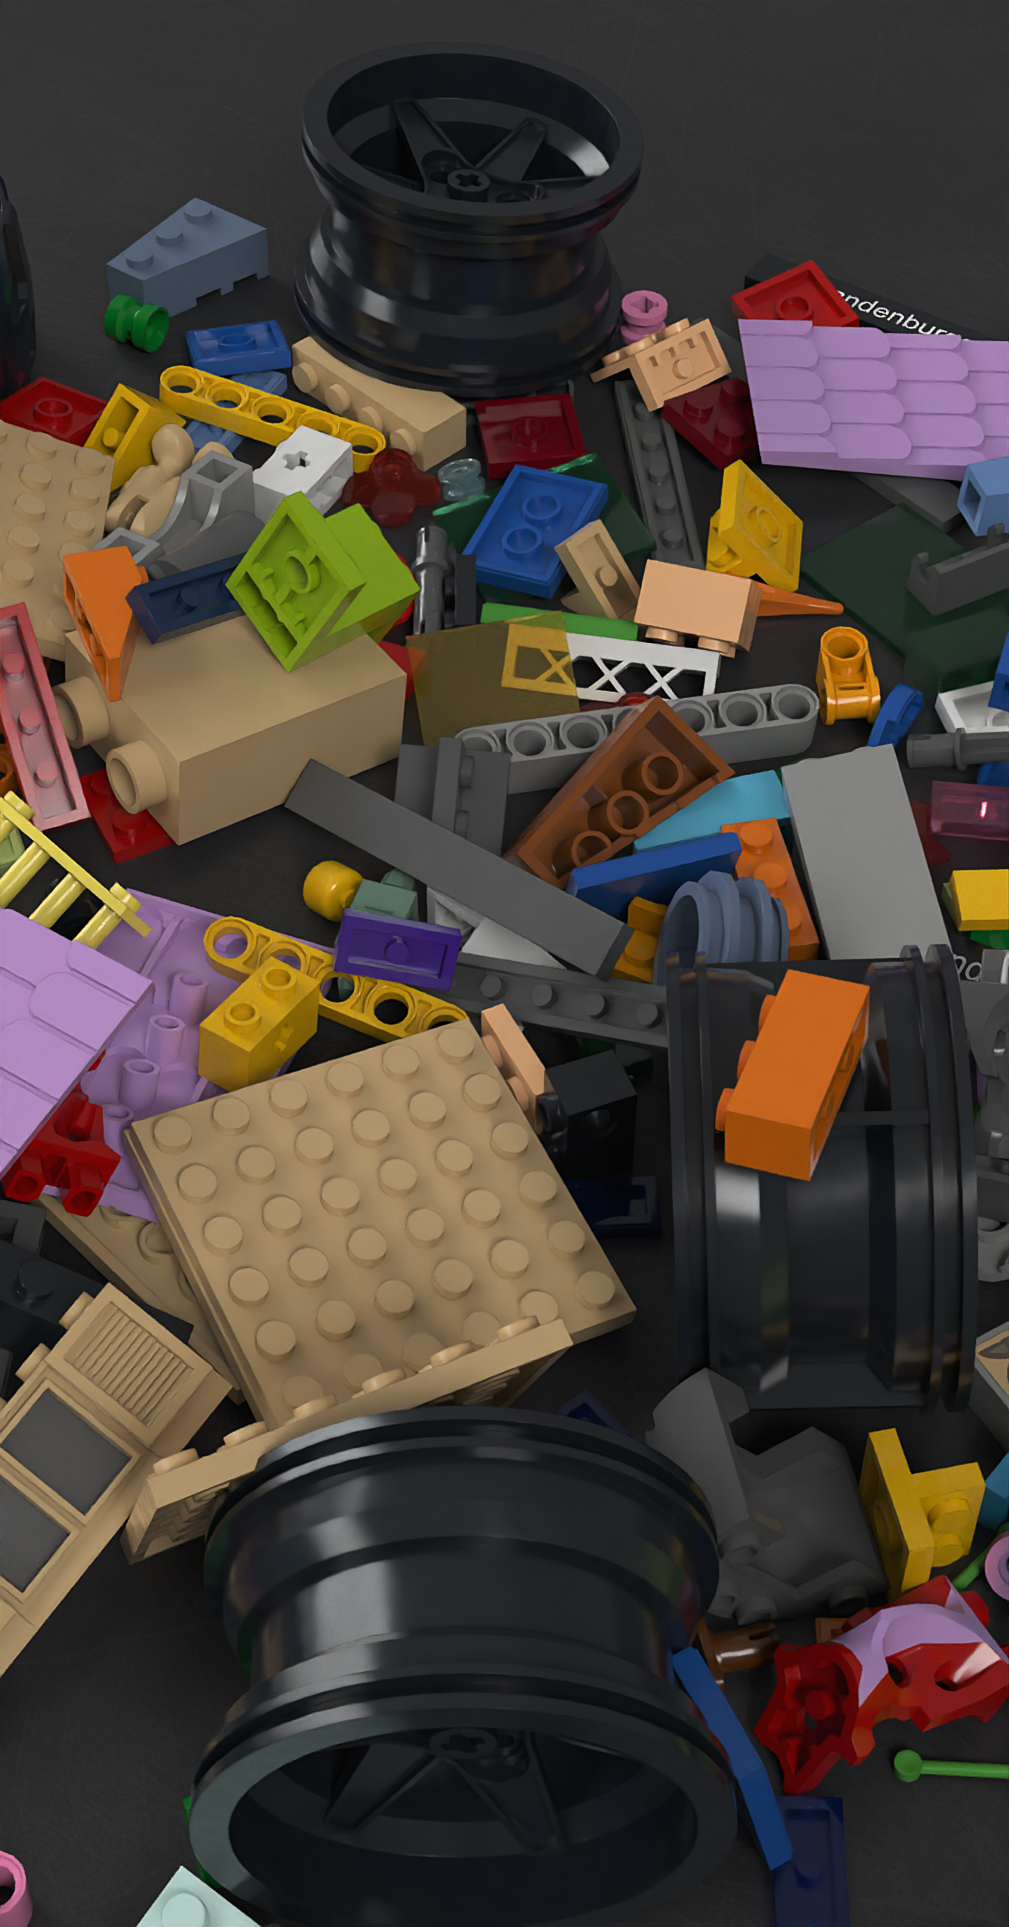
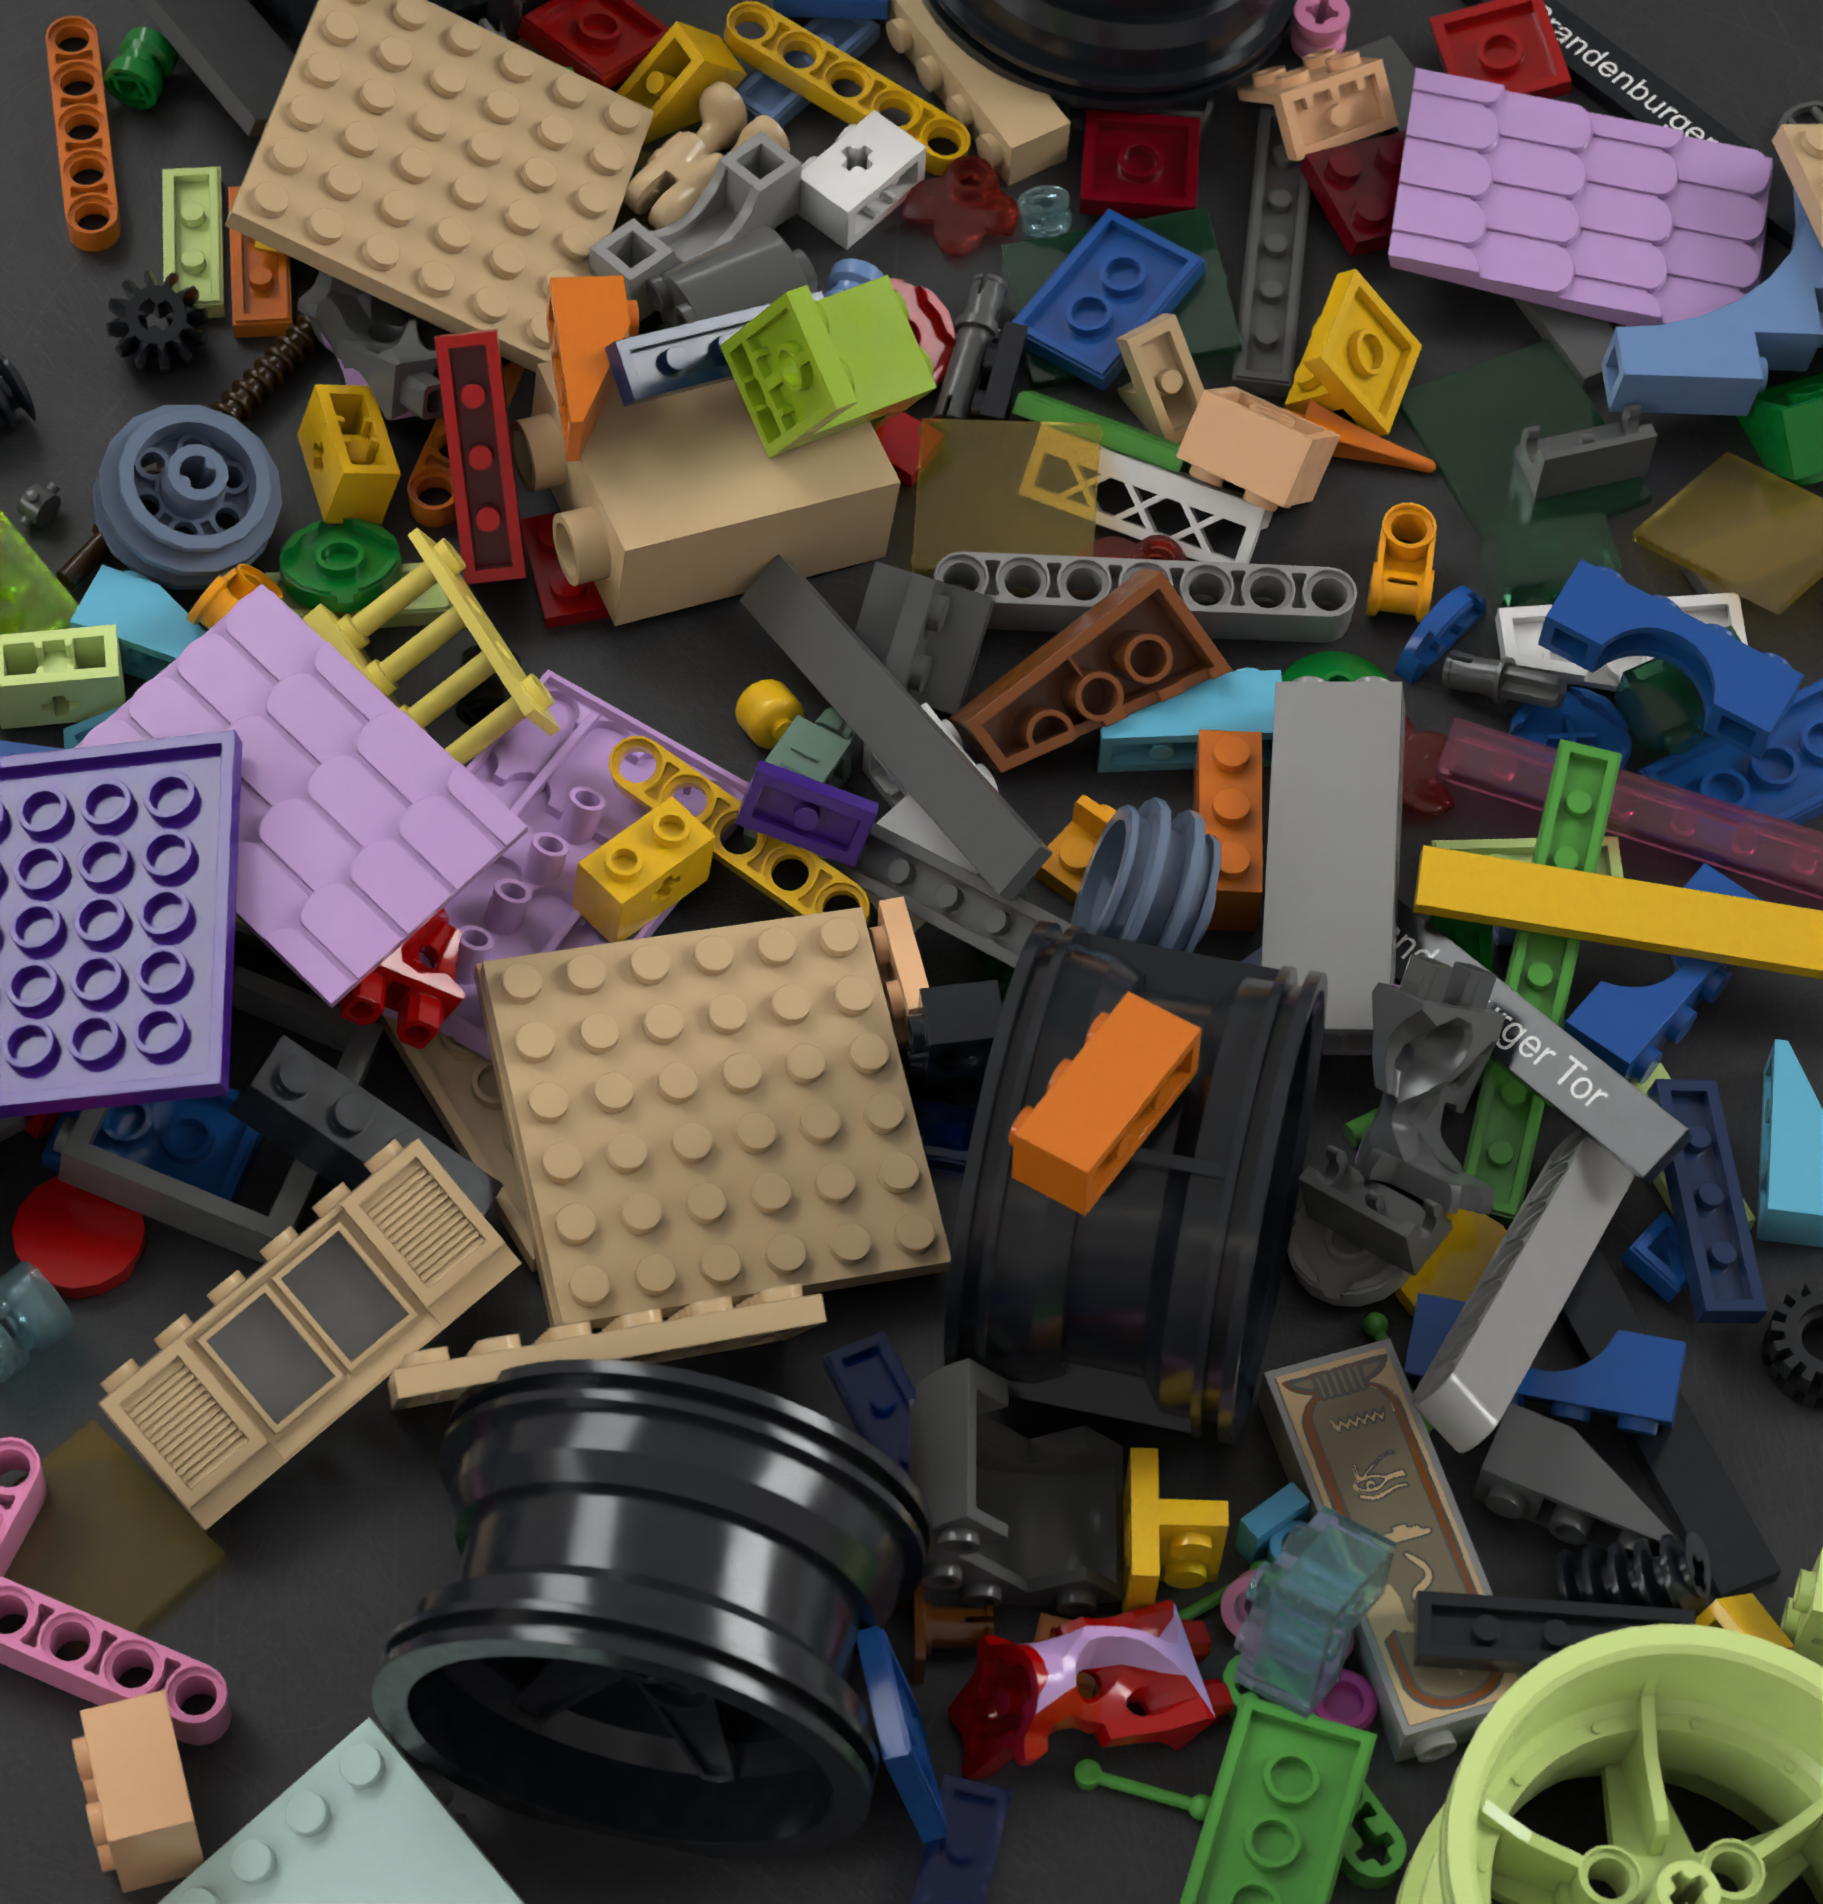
camera: 10 degrees right, 10 degrees up
(652, 874) = (1104, 779): blue tile -> none

